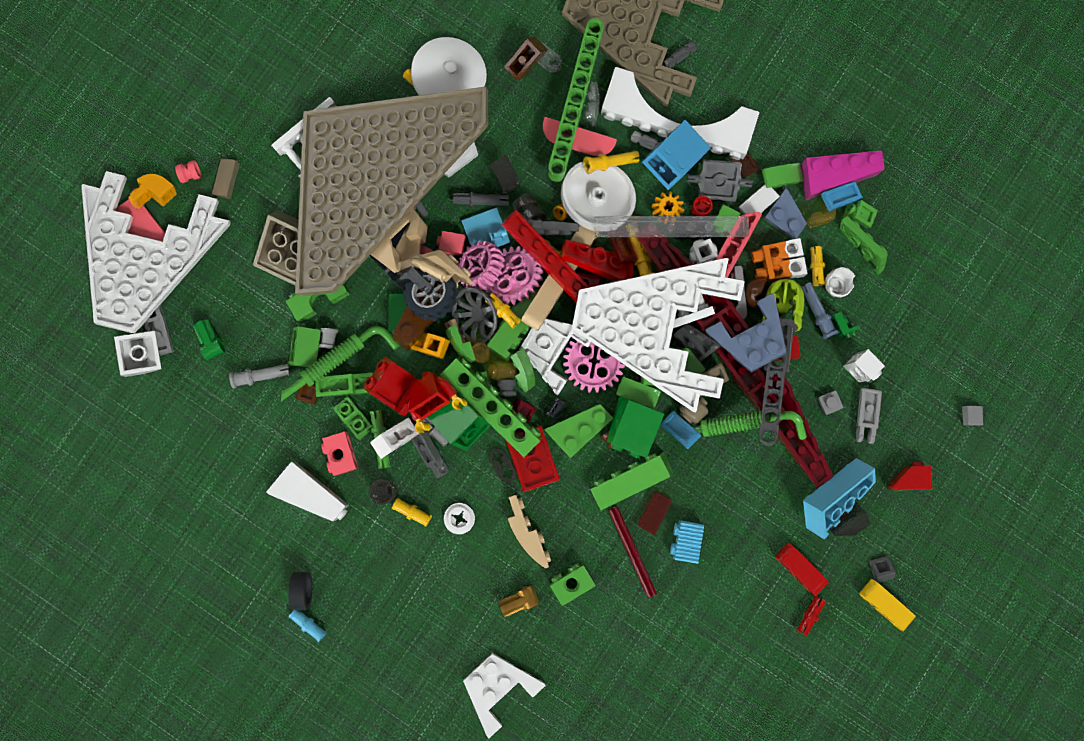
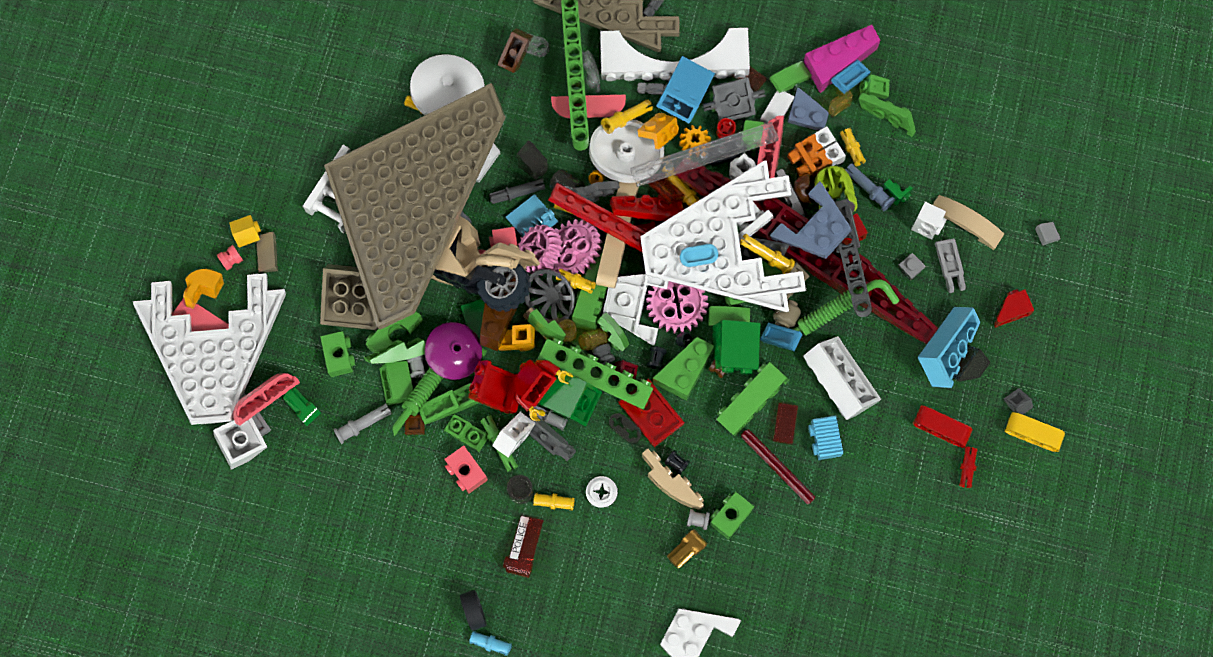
camera: 15 degrees left, 10 degrees down
(171, 320) = (263, 396): none -> coral brick
(210, 150) = (245, 230): none -> yellow brick
(252, 291) = (331, 344): none -> bright green brick
(307, 492) = (447, 517): white slope -> none
(312, 321) = (397, 352): none -> slope
(352, 332) = (441, 353): none -> magenta dish
(369, 545) = (524, 547): none -> clear red door
(539, 515) = (677, 462): none -> black bush
(539, 576) = (698, 519): none -> light grey bush
(591, 402) = (683, 336): none -> black hinge
(629, 328) = (699, 255): none -> medium azure tile
(638, 185) = (660, 129): none -> light orange bracket
(701, 353) = (773, 257): none -> yellow pin
(723, 489) = (841, 377): none -> white slope
(839, 282) = (878, 154): white hair -> none
(902, 377) = (970, 221): none -> tan slope

